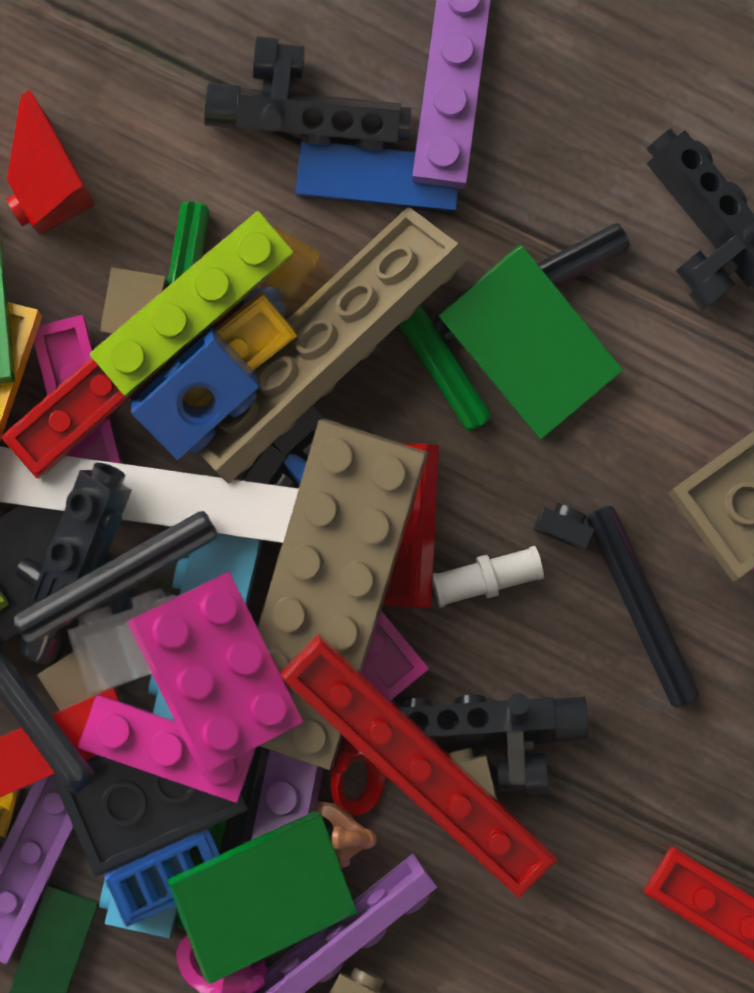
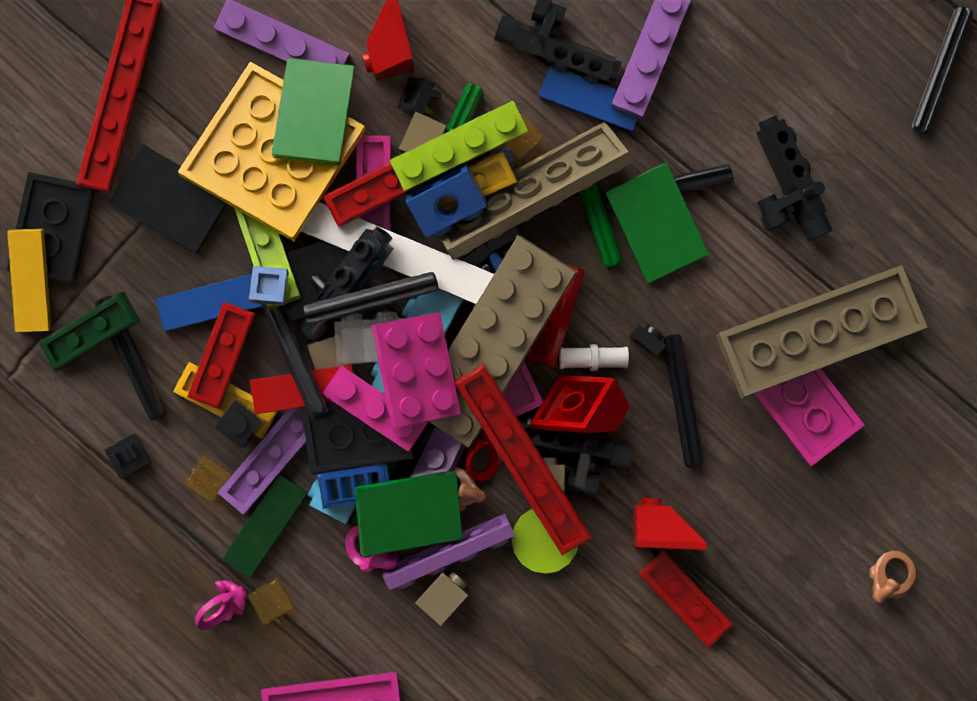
camera: 15 degrees right, 0 degrees up
(108, 242) = (417, 96): none -> black tile
(473, 894) = (535, 547): none -> lime tile
(489, 657) = (582, 405): none -> red slope
(663, 816) = (662, 527): none -> red slope

